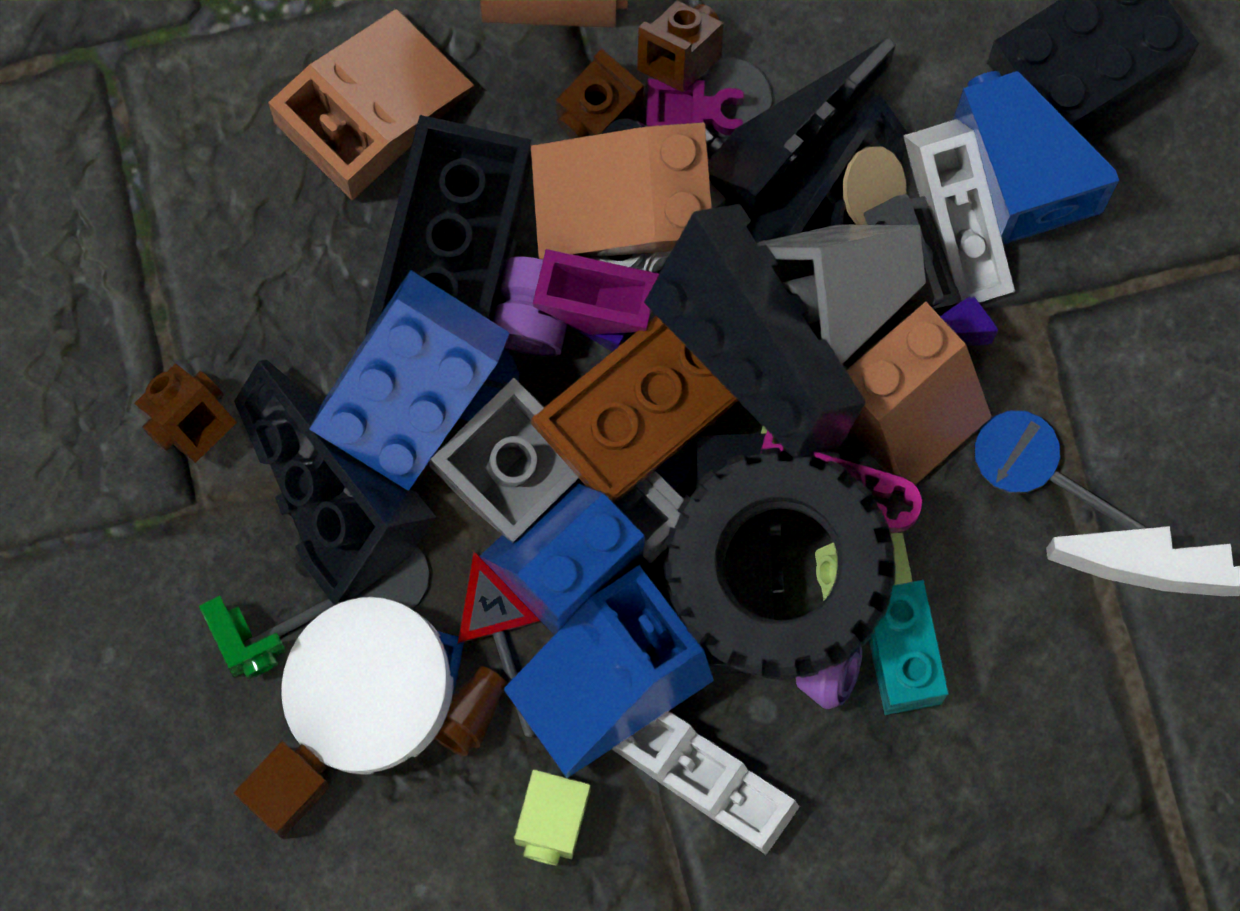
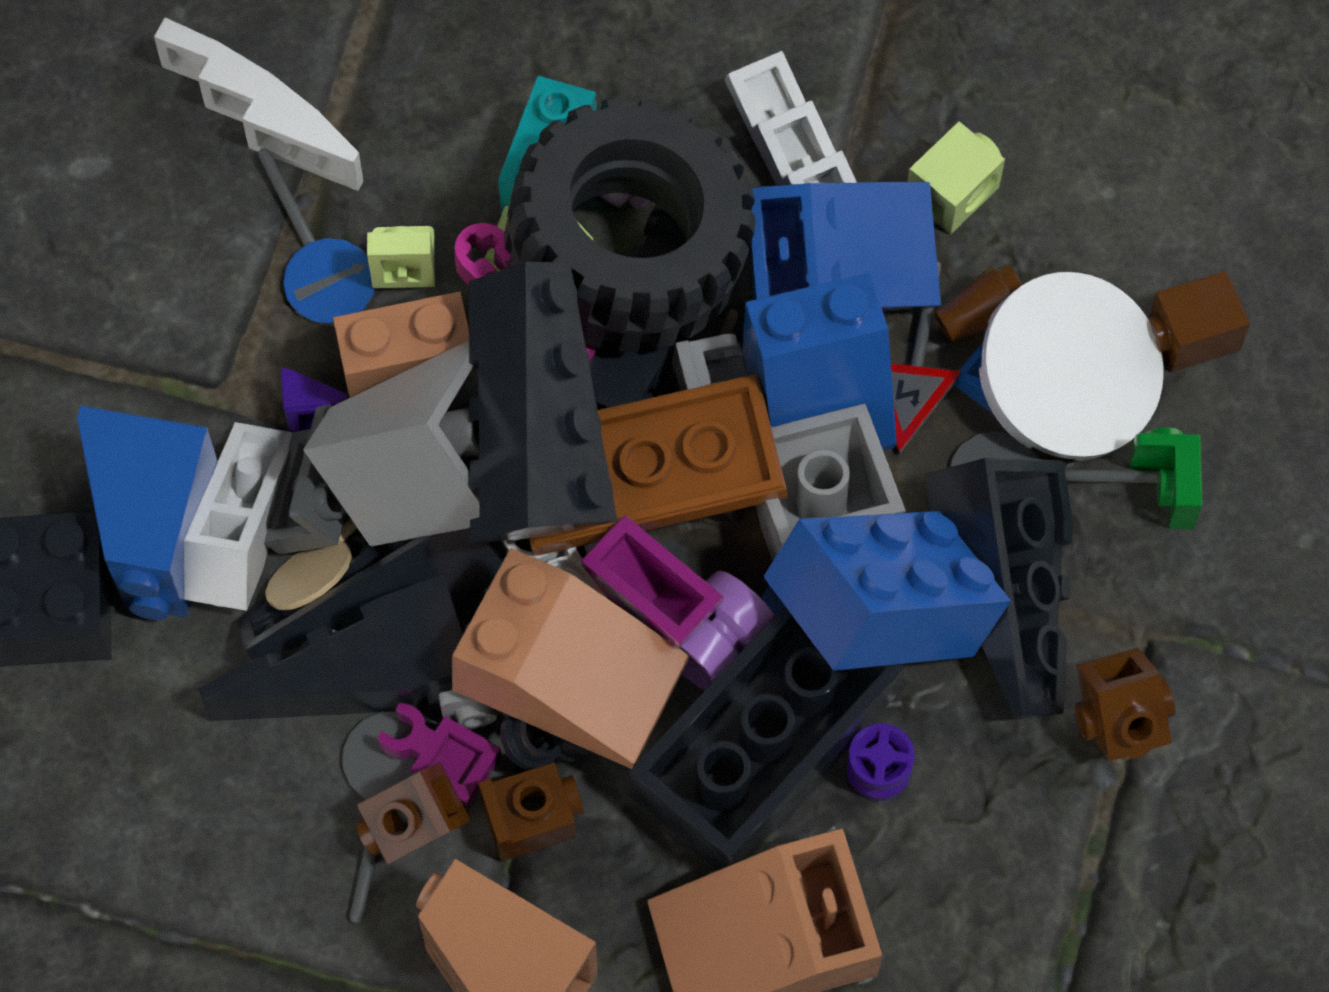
camera: 150 degrees left, 10 degrees down
(350, 267) = (884, 748): none -> dark purple wheel
(968, 493) = (401, 256): none -> yellowish green bracket

